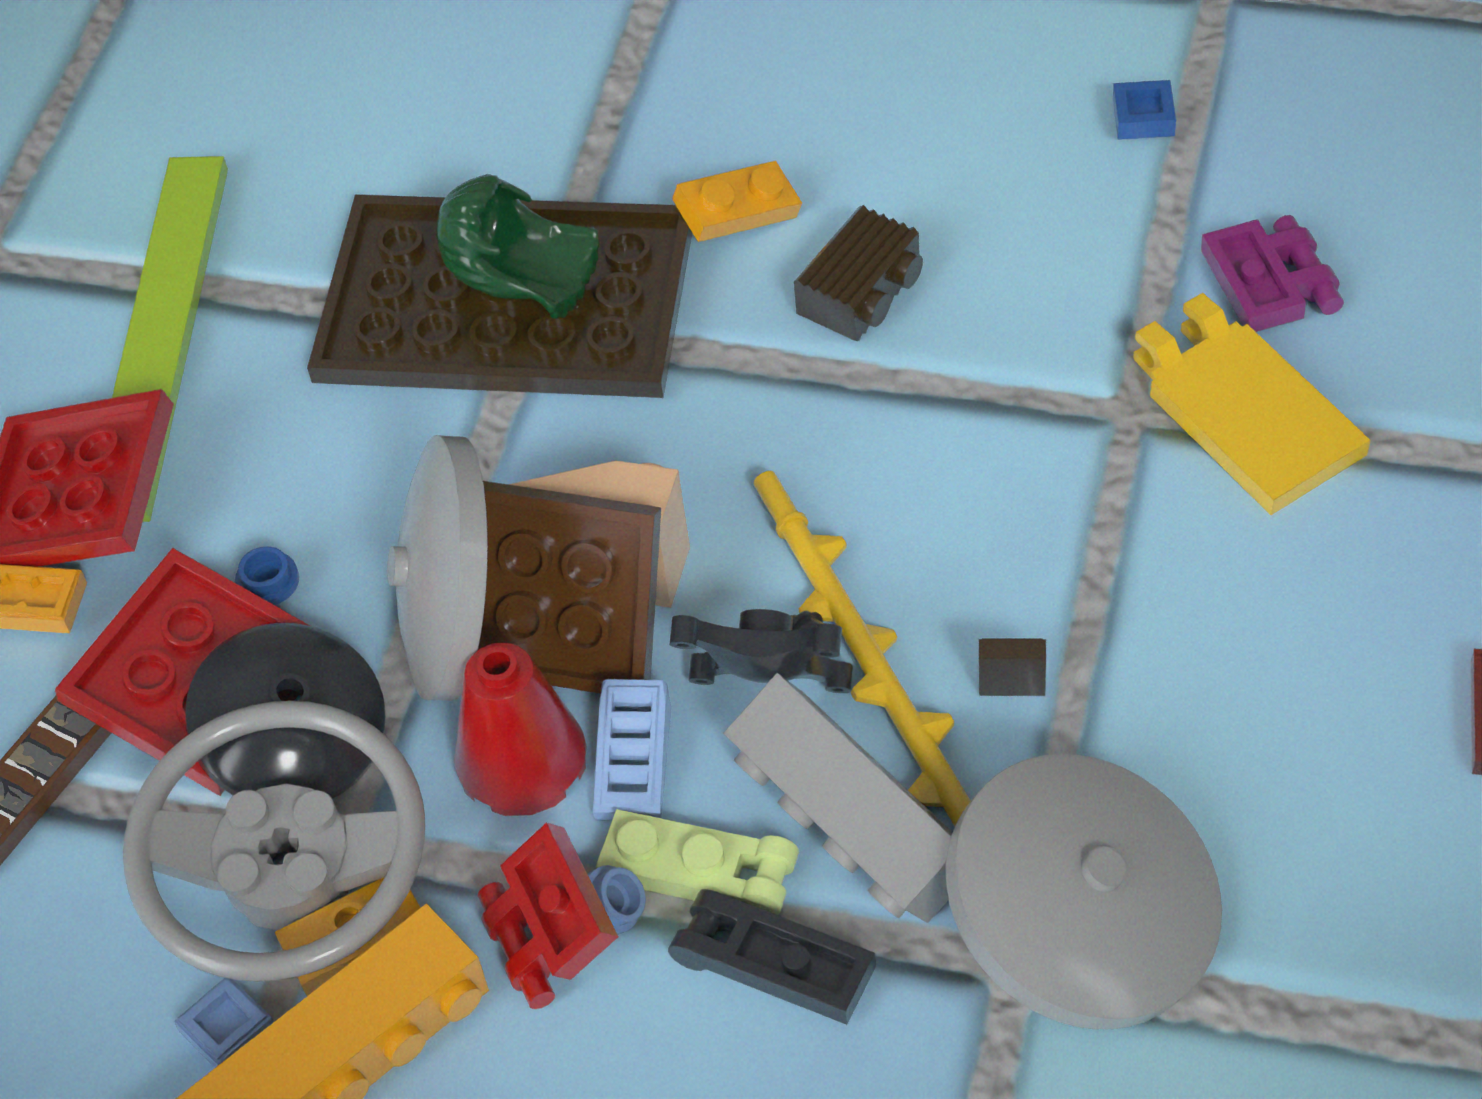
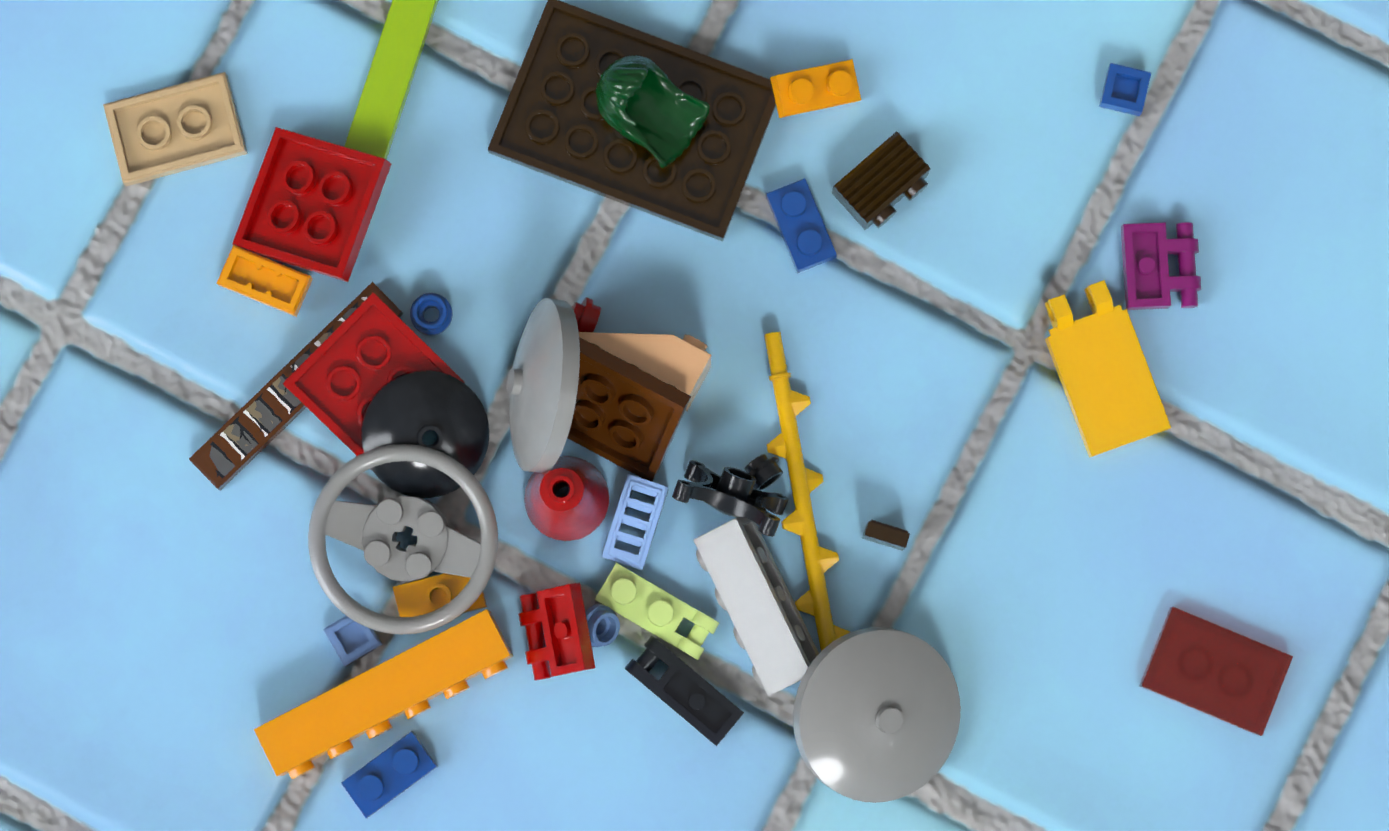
camera: 10 degrees right, 30 degrees up
(766, 355) = (801, 225): none -> blue plate

